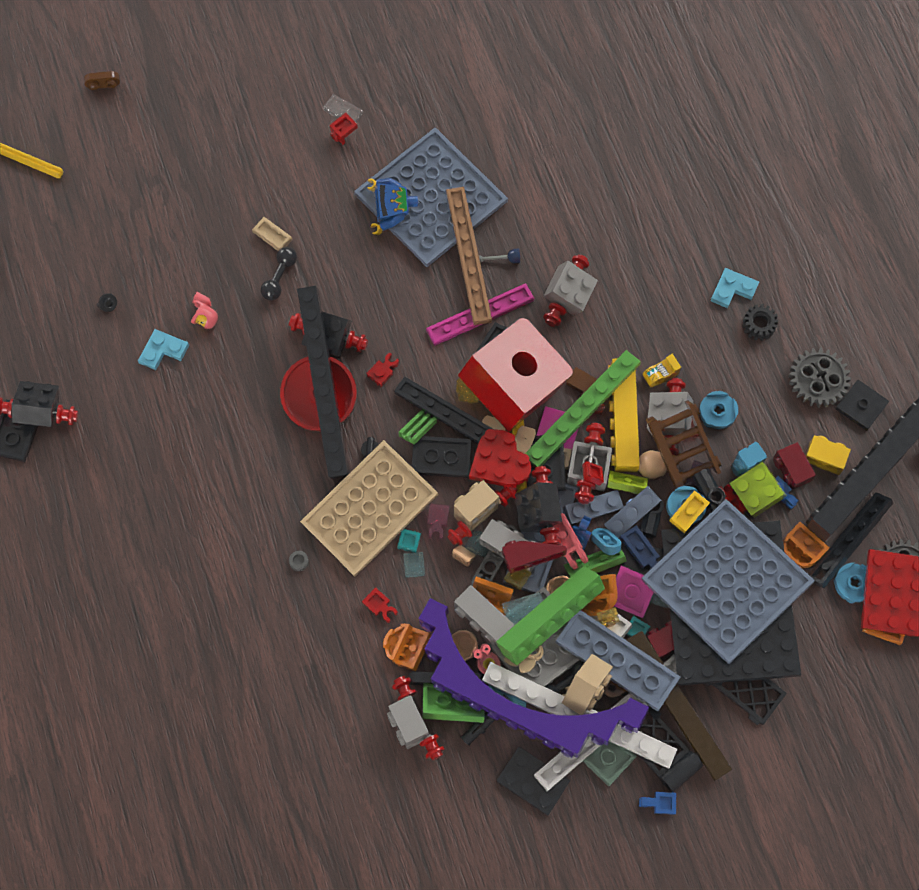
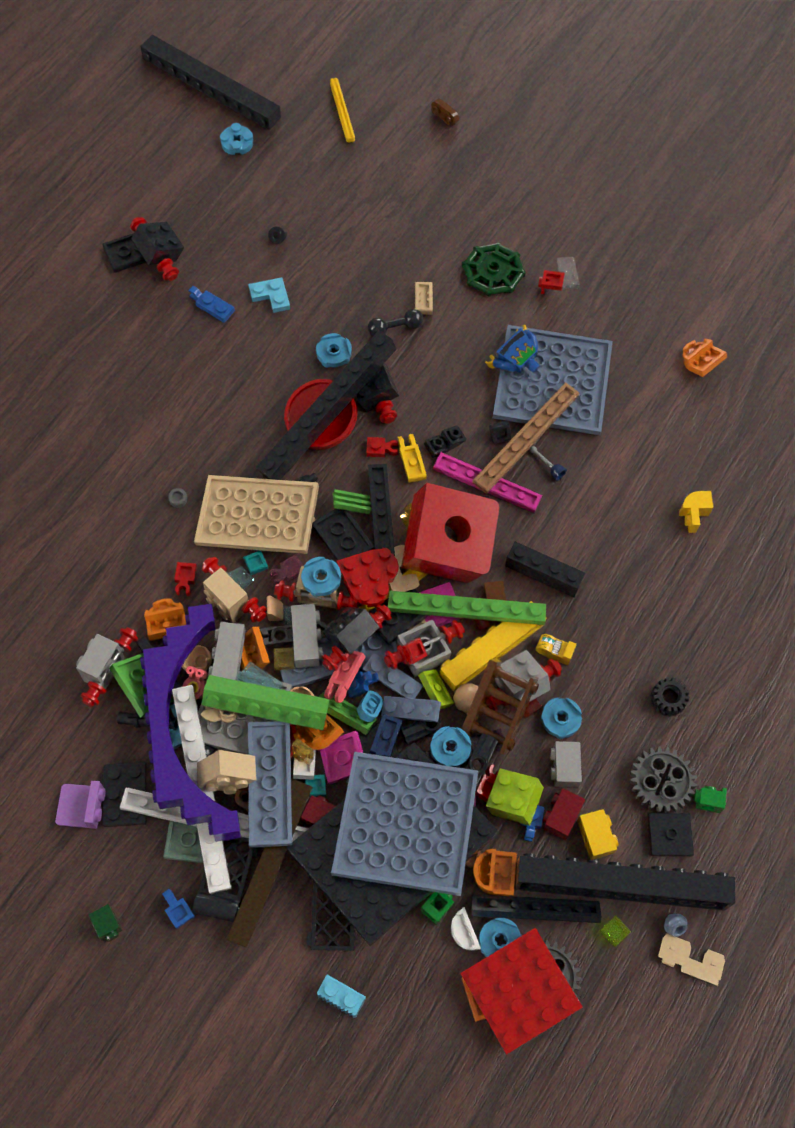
camera: 50 degrees right, 5 degrees down
(131, 404) = (211, 304): none -> blue plate
(204, 315) = (320, 298): coral piece -> none
(262, 350) = (335, 359): none -> dark azure plate
(295, 169) = (490, 276): none -> dark green plate
(414, 354) = (412, 460): none -> yellow hinge
(418, 318) = (445, 441): none -> black slope
(426, 581) = (228, 595): none -> tan brick
(446, 271) = (500, 432): none -> black tile
(482, 506) = (324, 566): none -> dark azure plate
(502, 75) = (702, 356): none -> orange slope
(518, 821) = (80, 805): none -> medium lavender bracket
(527, 554) = (298, 645): dark red slope -> none
(569, 290) = (563, 528): light grey brick -> none
(591, 329) = (544, 569): none -> black brick
(624, 184) = (696, 505): none -> yellow brick
(632, 865) = (105, 923): none -> dark green brick
(689, 511) = (443, 750): yellow plate -> none
(731, 283) = (685, 650): medium azure plate -> none
(748, 458) = (534, 766): dark azure brick -> none
(757, 430) = (566, 764): none -> light grey brick
(805, 611) = (431, 912): none -> green brick
(817, 726) = (341, 996): none -> medium azure brick
(829, 603) = (463, 931): none -> white plate
(858, 356) = (710, 799): none -> green brick
(905, 498) = (615, 931): none -> clear neon green plate

